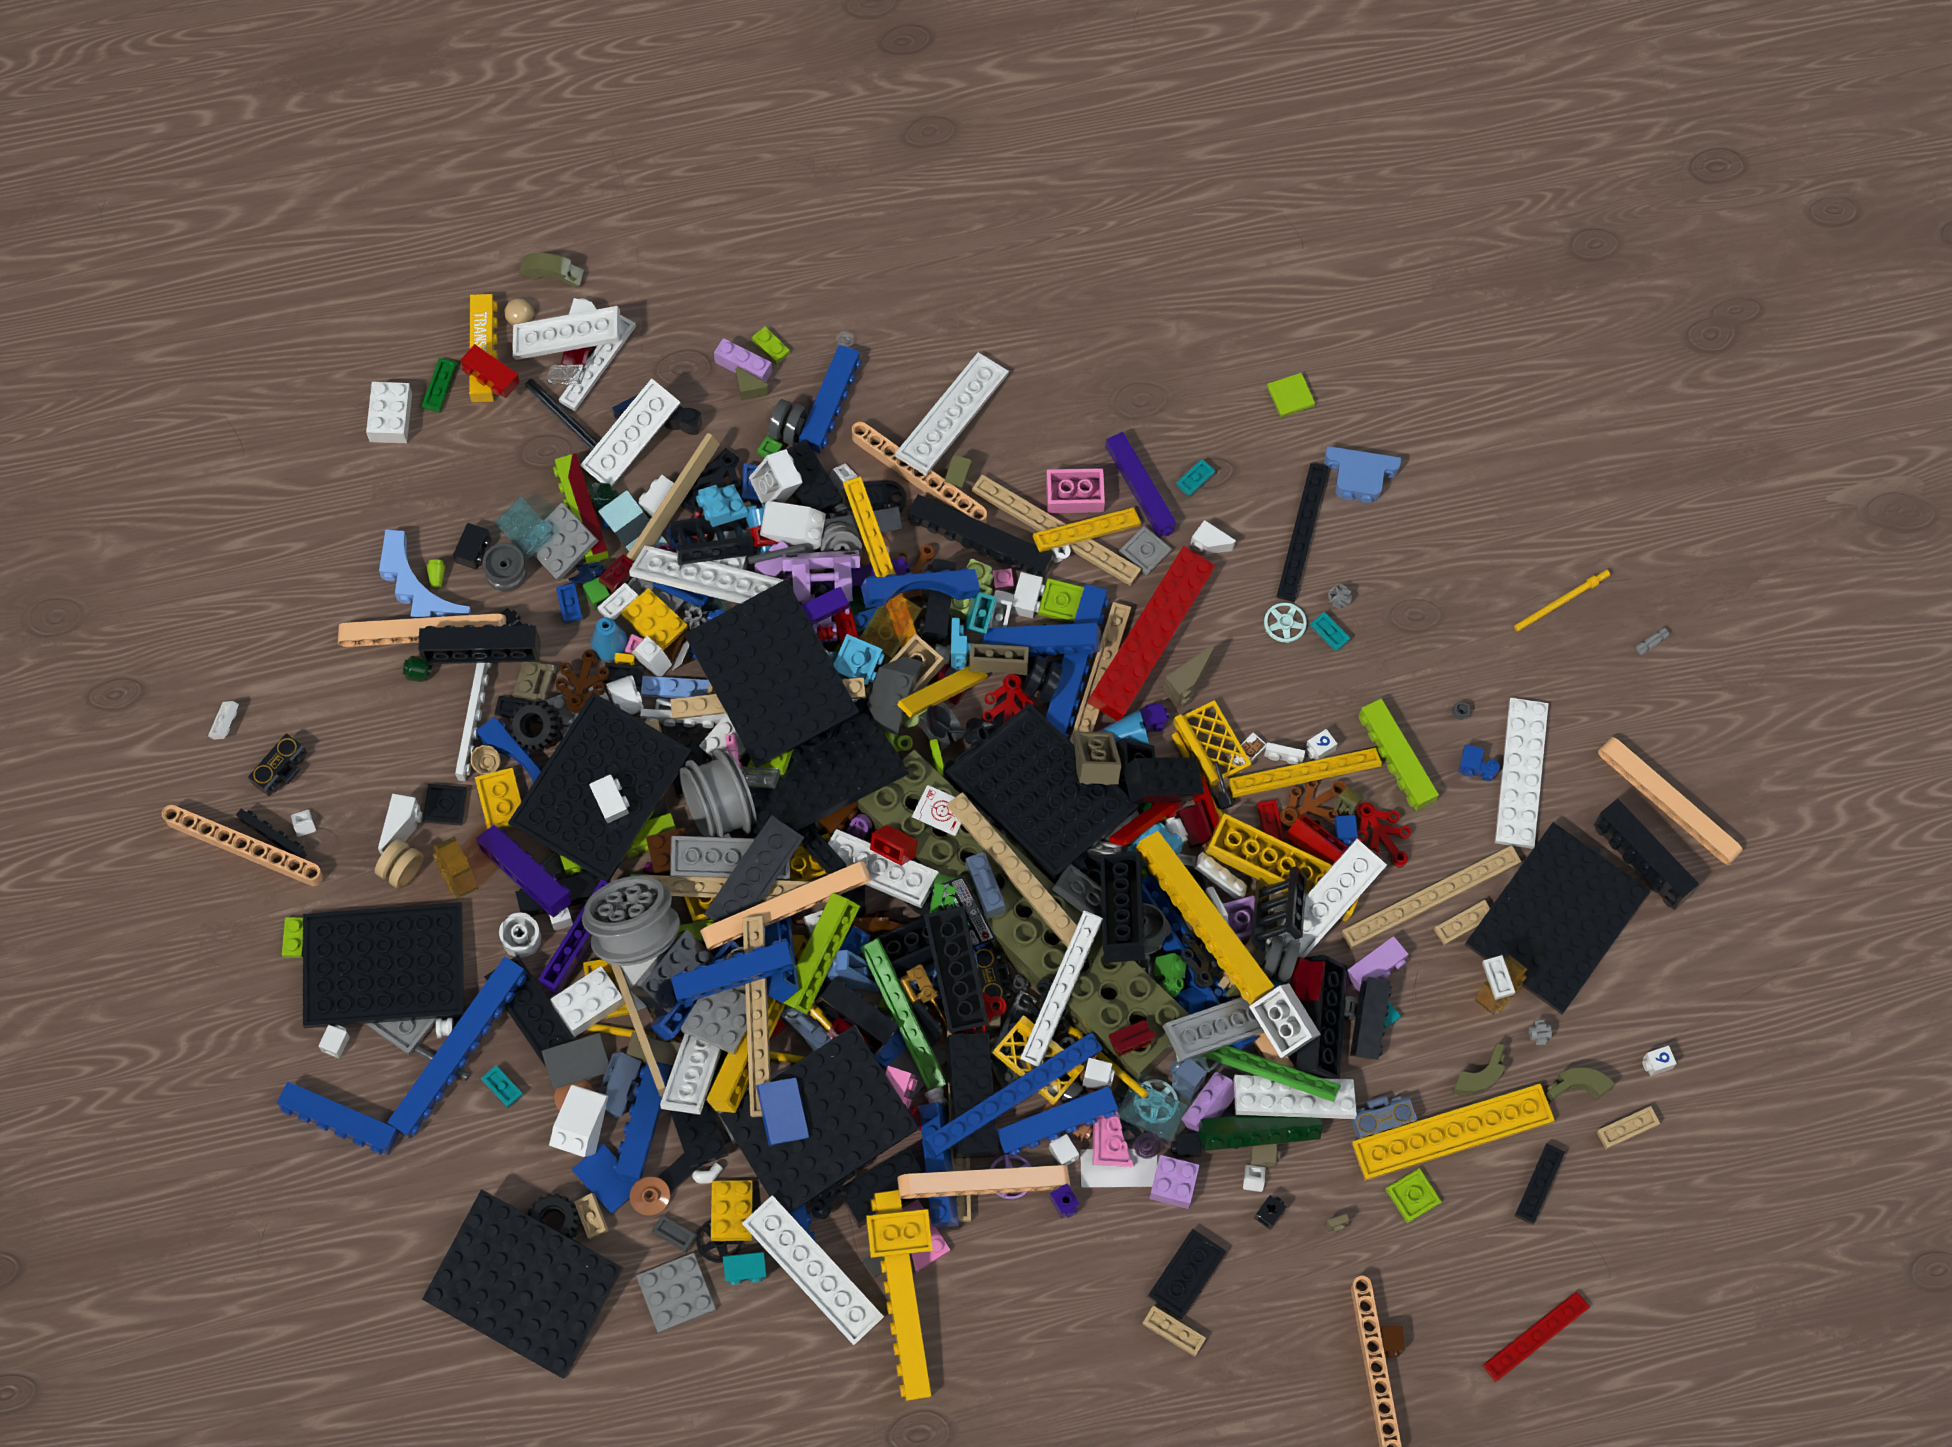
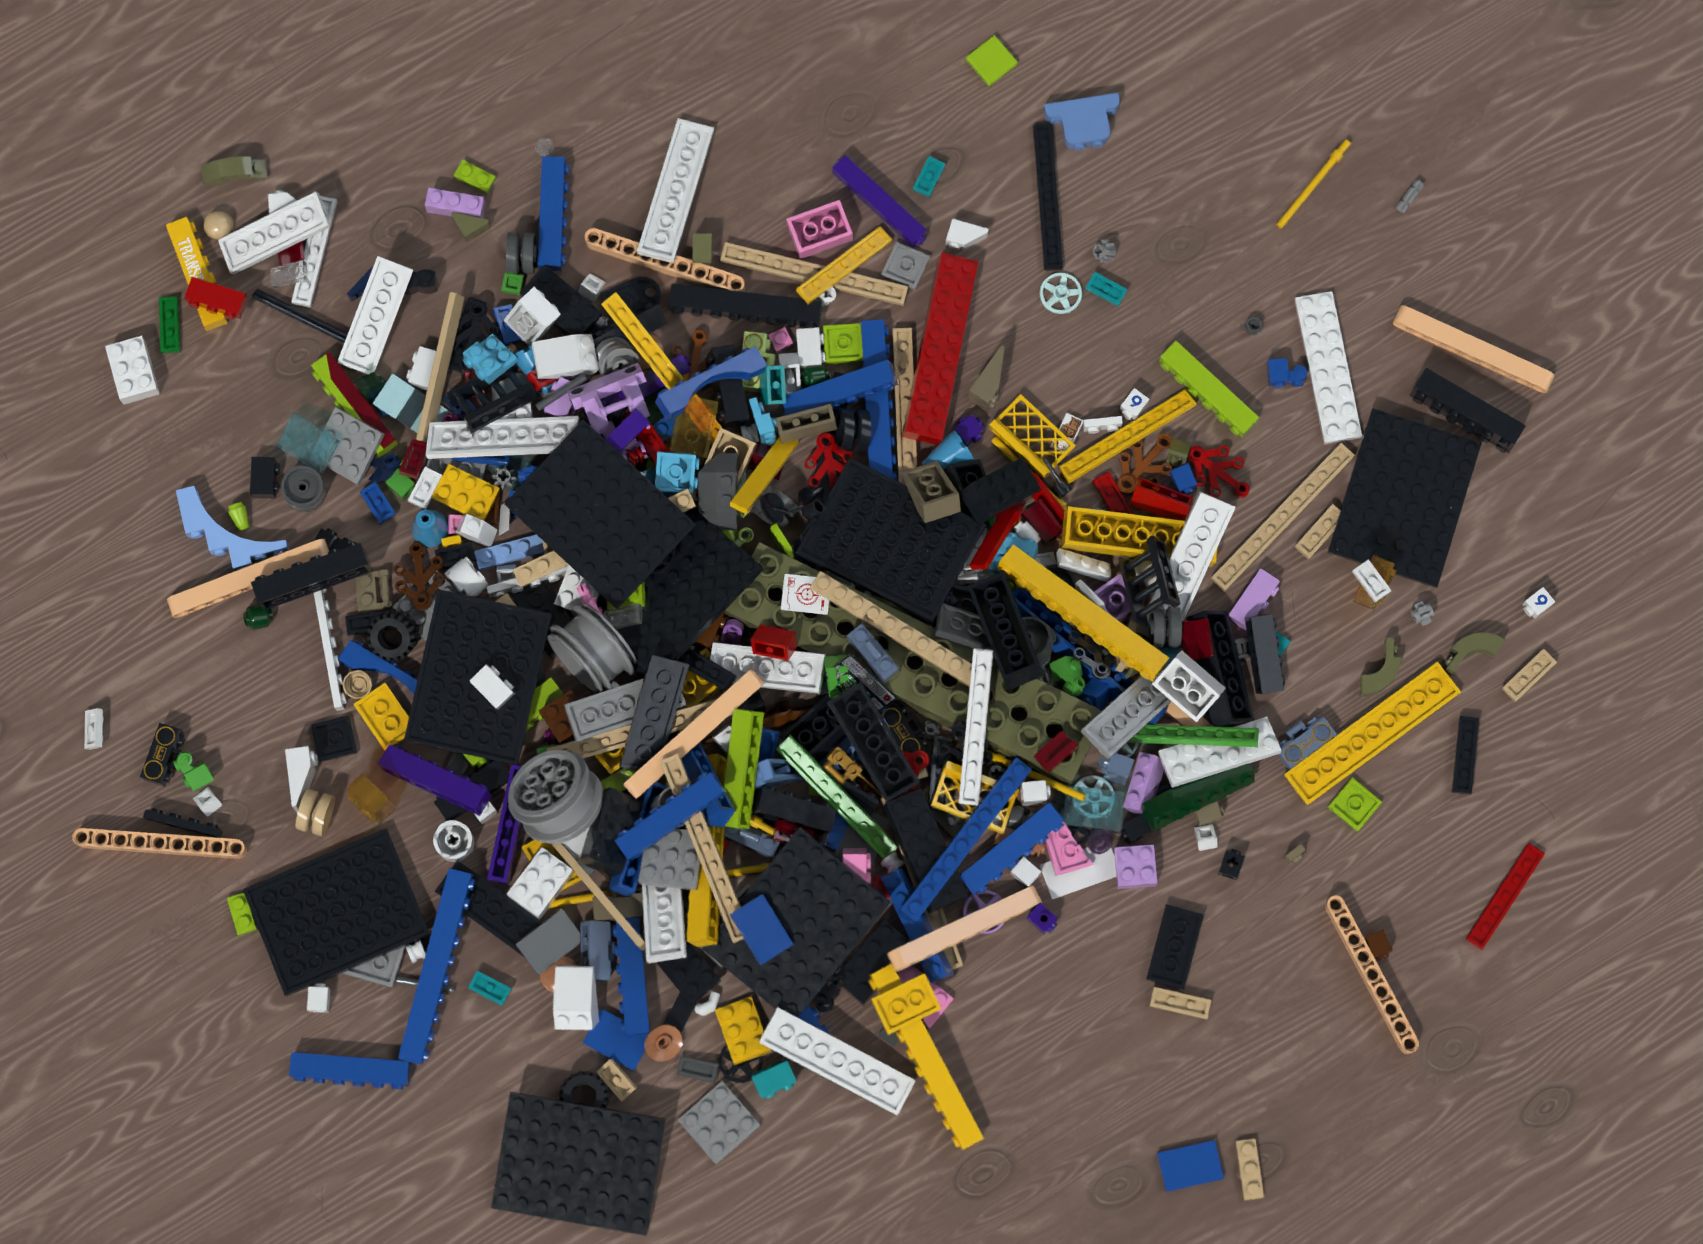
camera: 15 degrees left, 10 degrees up
(299, 793) = (195, 775): none -> bright green brick
(1022, 618) = (814, 375): none -> dark green head

